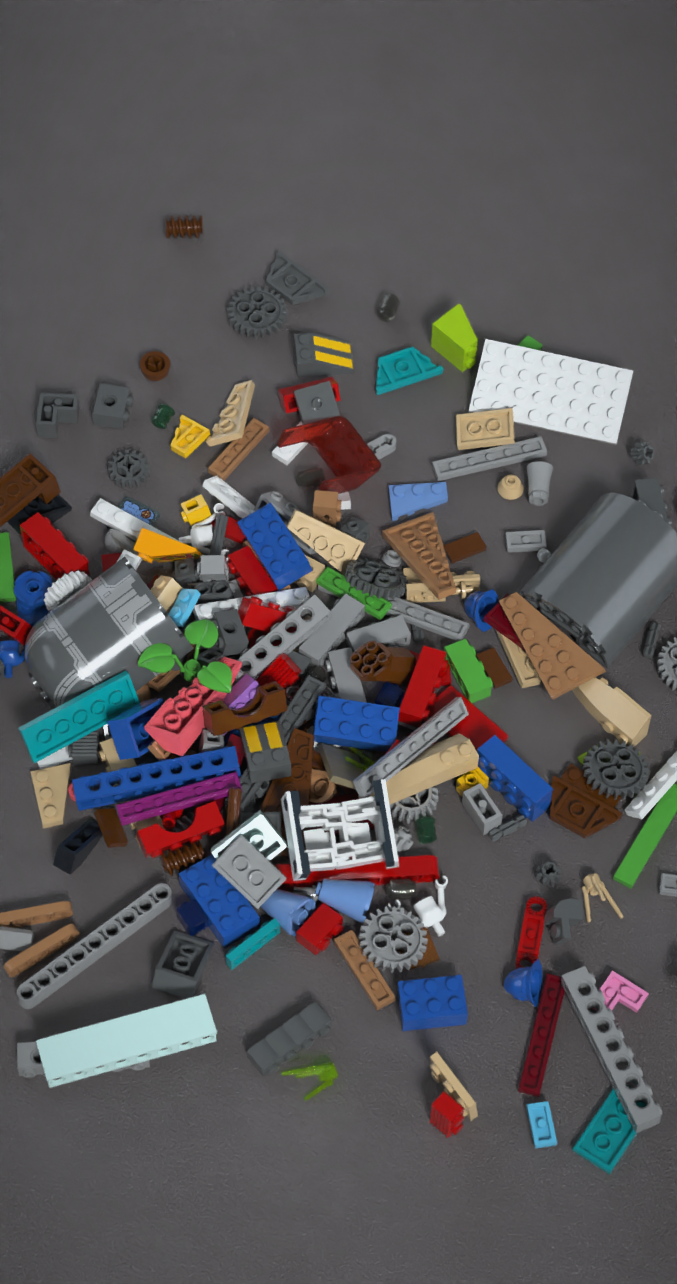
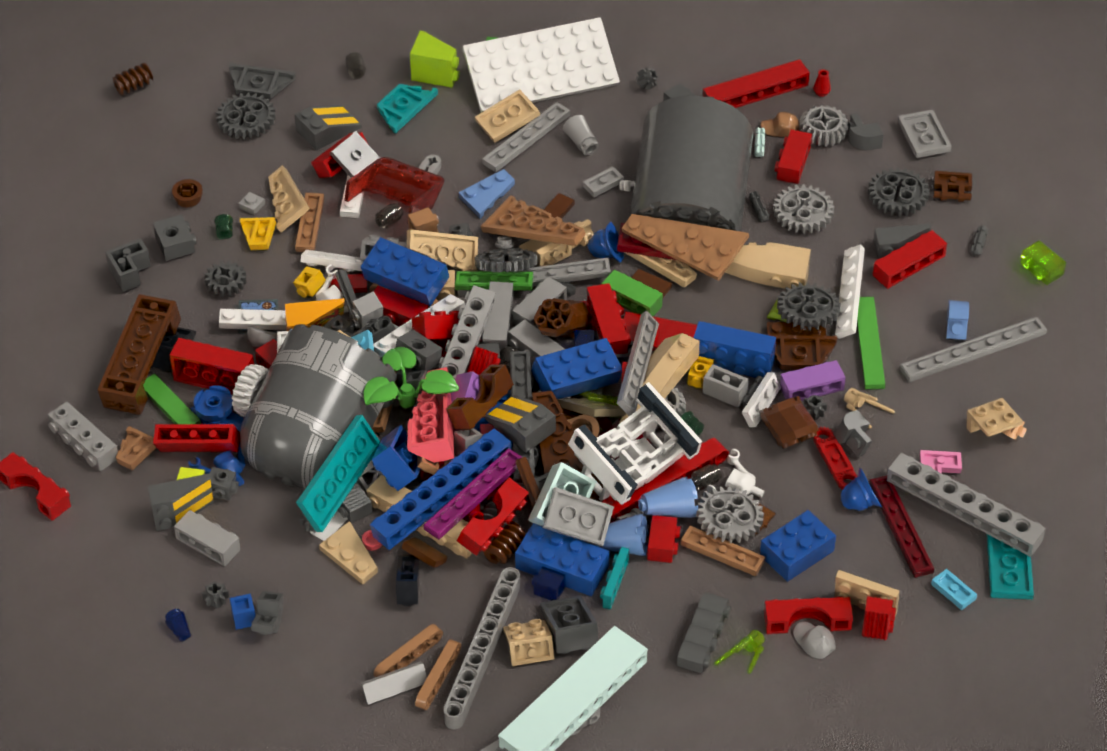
camera: 30 degrees left, 10 degrees down
(136, 962) = (529, 642): none -> tan bracket
(204, 404) = (251, 203): none -> light grey plate
(369, 1061) = (833, 612): none -> red arch
(383, 1101) = (814, 640): none -> light grey piece
(506, 840) = (761, 399): none -> white plate
(510, 487) = (559, 149): tan cone -> none
(511, 877) = (789, 422): none -> reddish brown brick
(566, 847) = (813, 380): none -> medium lavender brick

